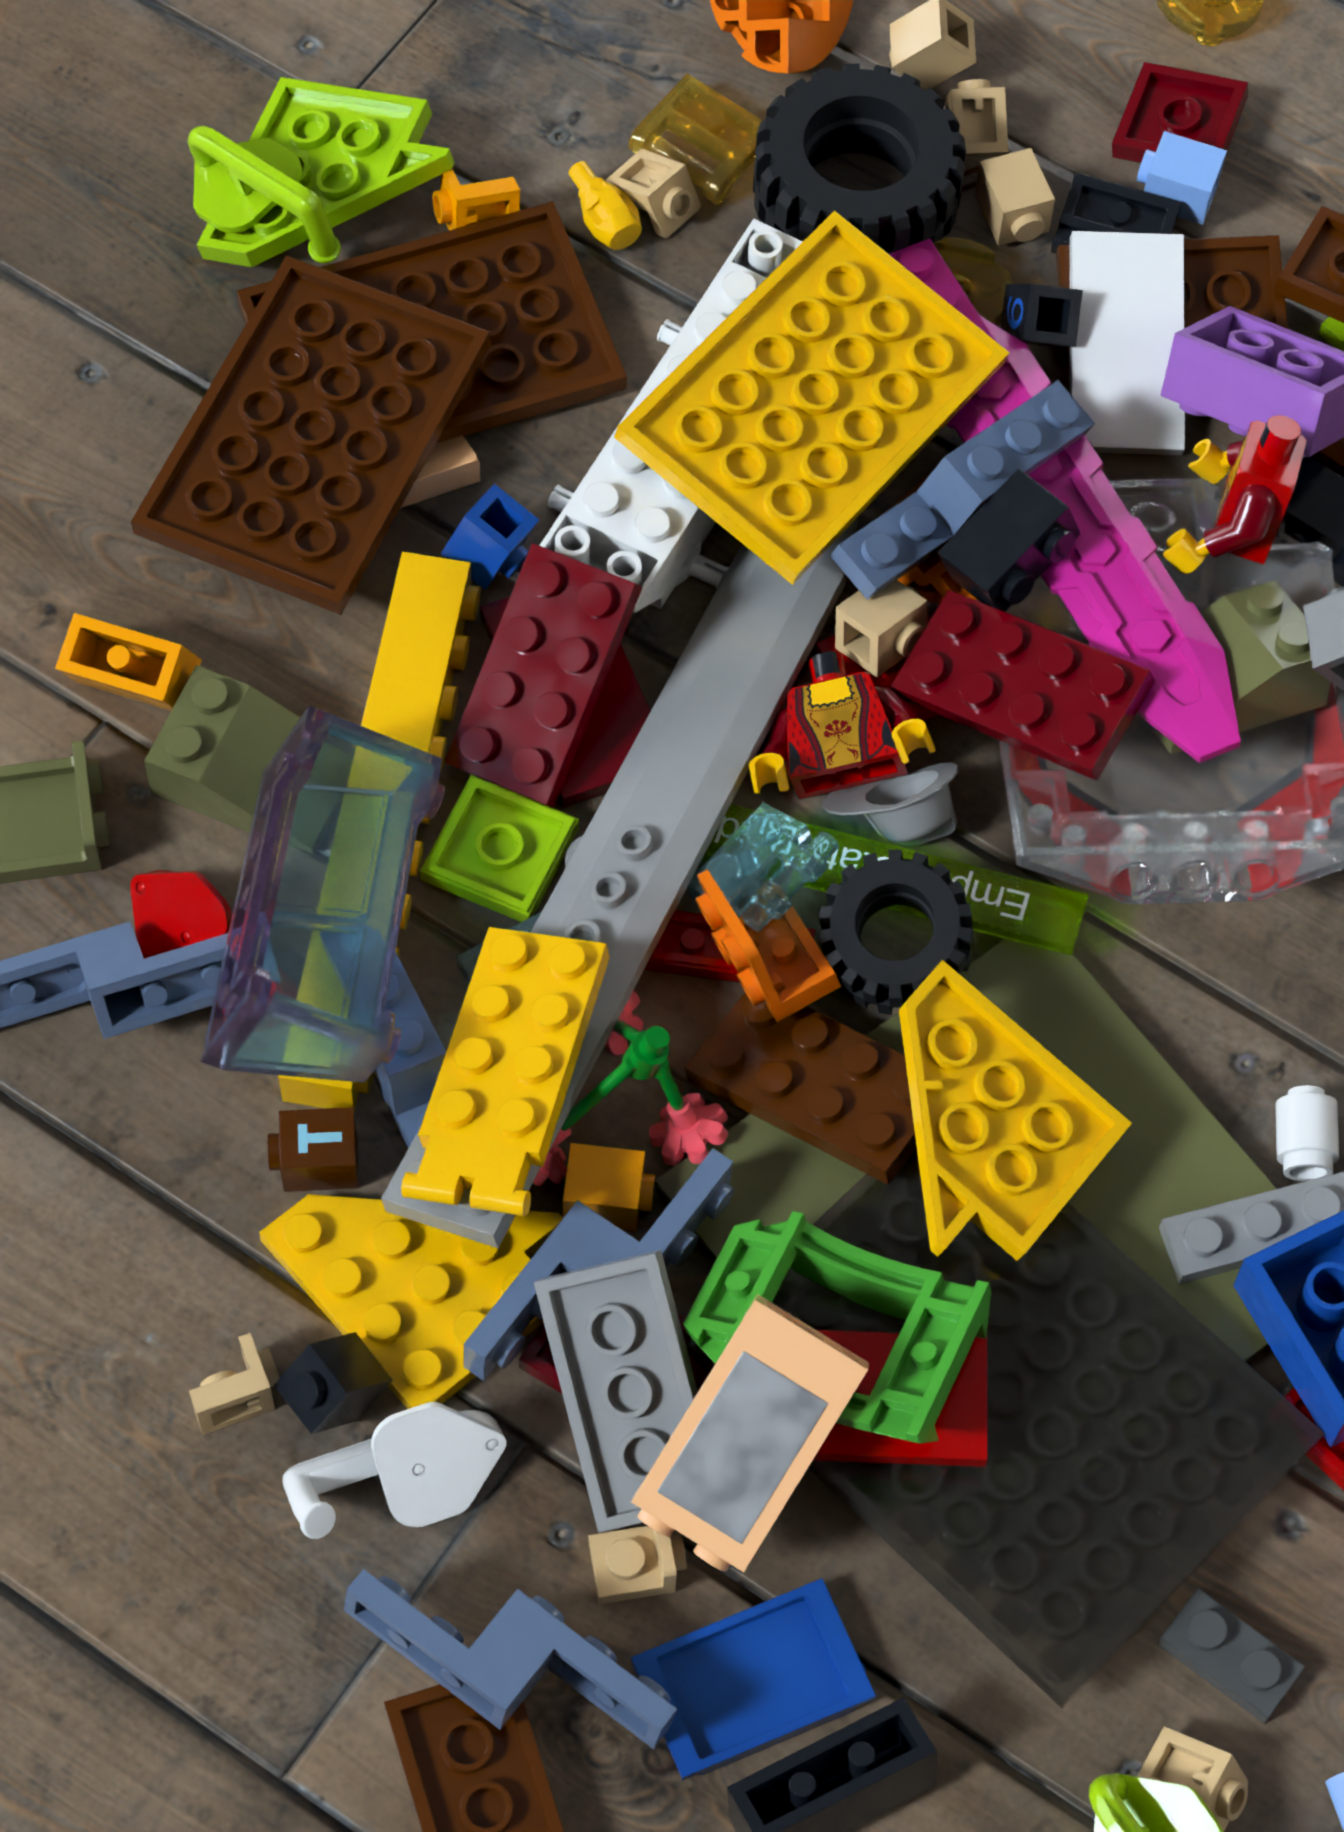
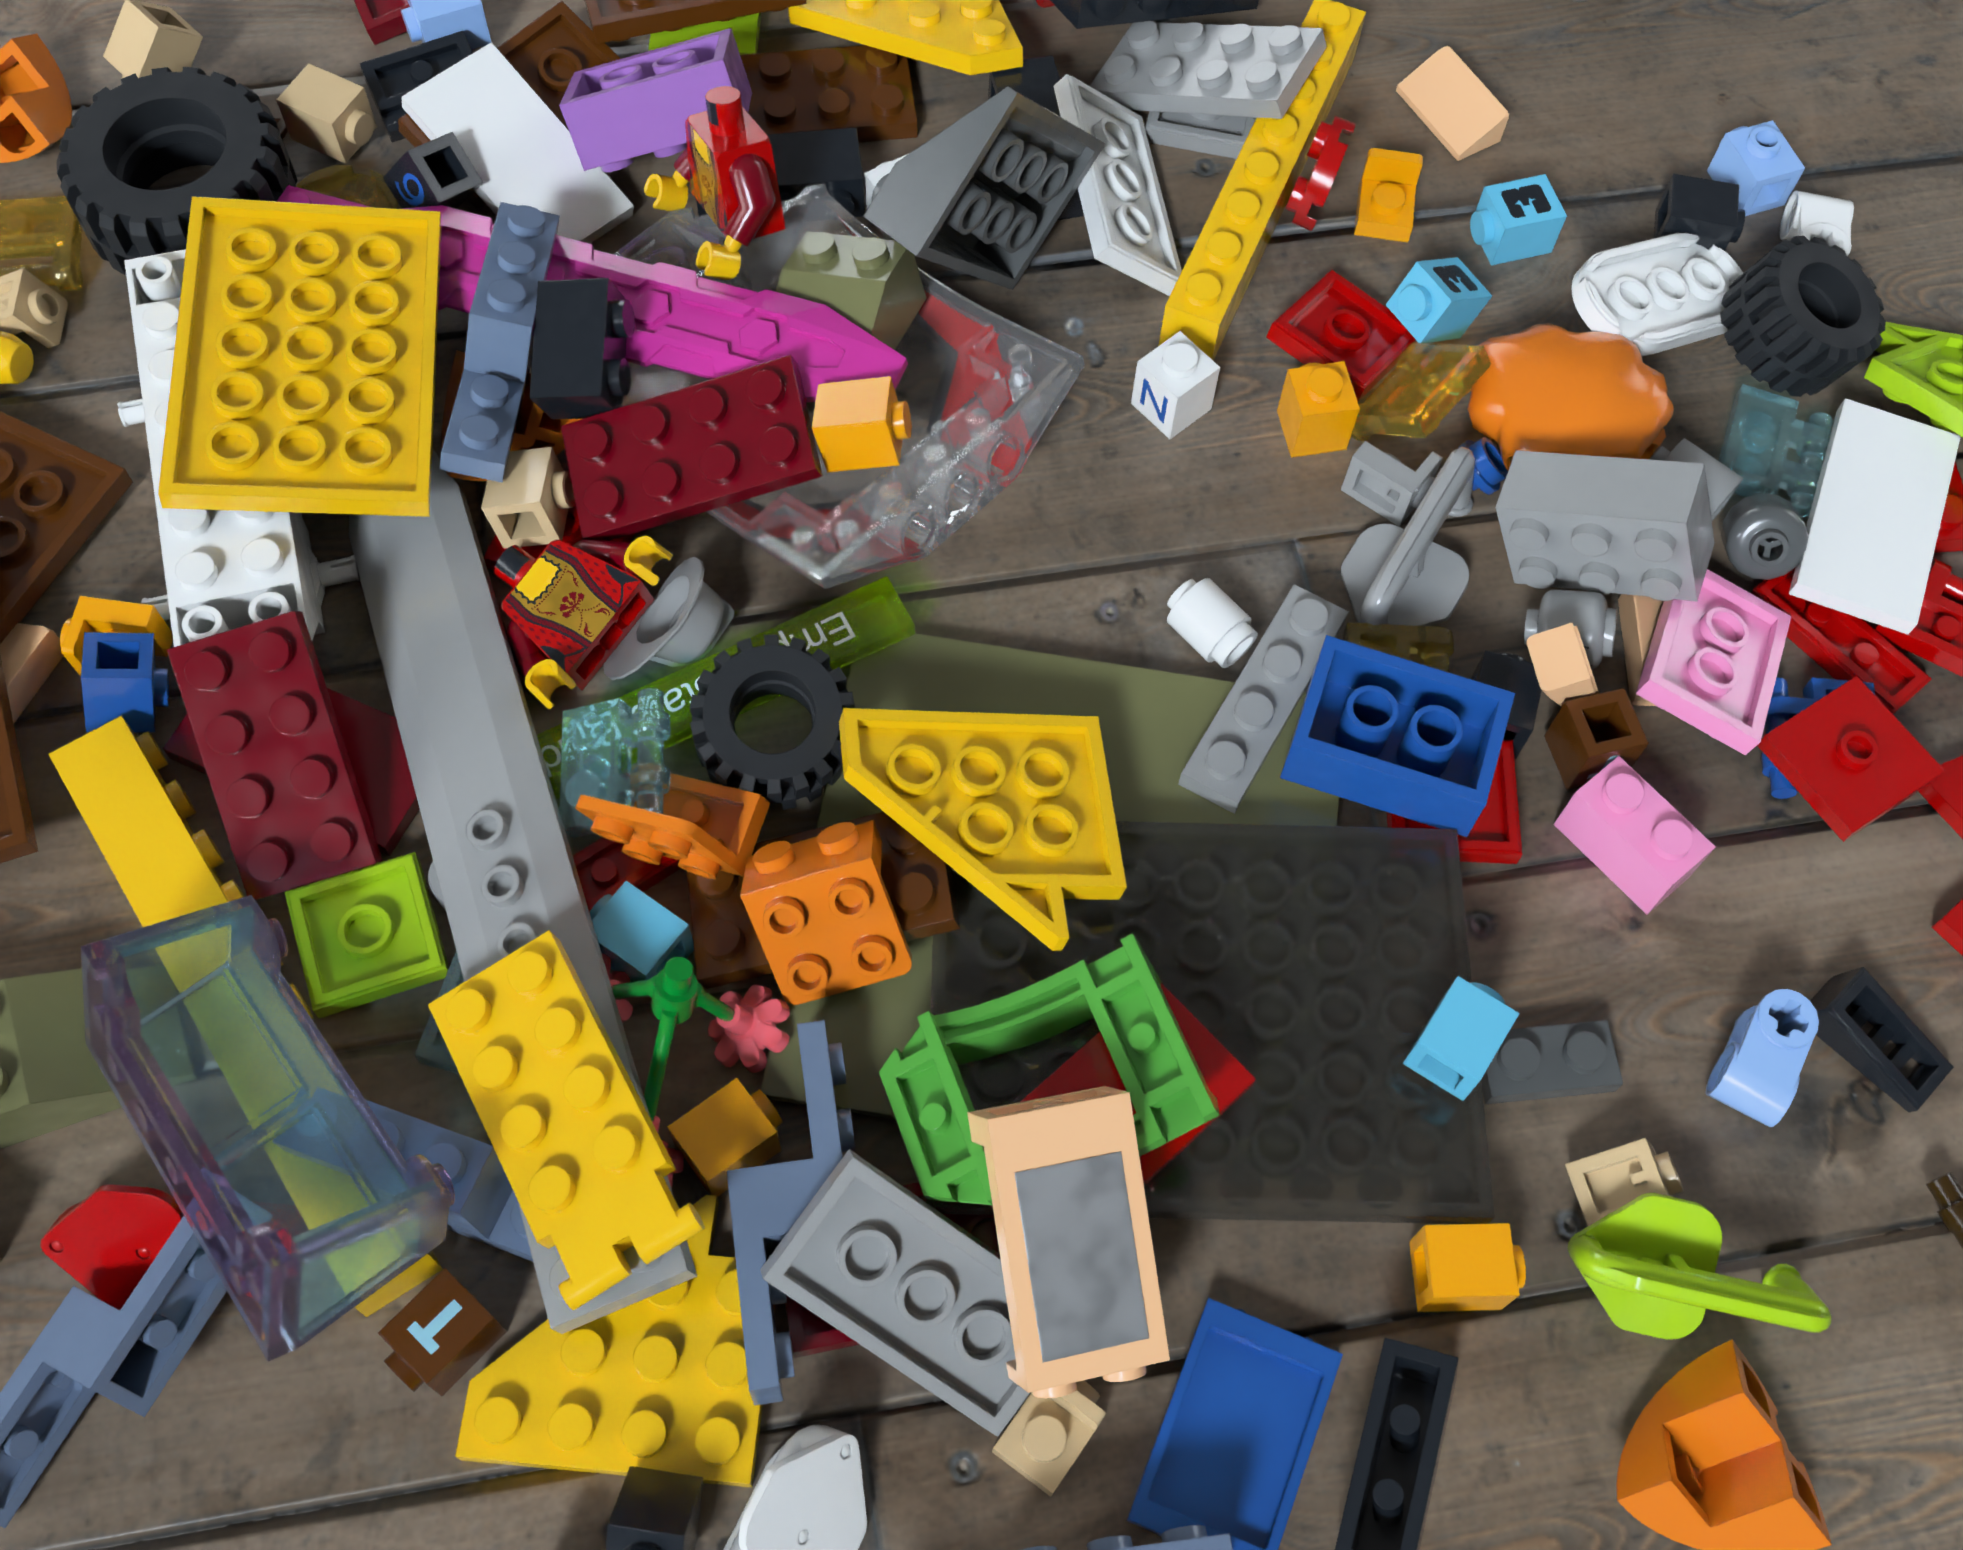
camera: 45 degrees left, 0 degrees up
(522, 485) = (111, 617): none -> light orange bracket
(674, 1000) = (639, 933): none -> medium azure brick
(803, 1092) = (825, 913): none -> orange bracket
(980, 116) = (247, 68): tan bracket -> none
(1015, 1718) = (1466, 1267): none -> light orange brick
(1157, 763) = (860, 424): none -> light orange brick
(1161, 1562) = (1462, 1037): none -> medium azure brick

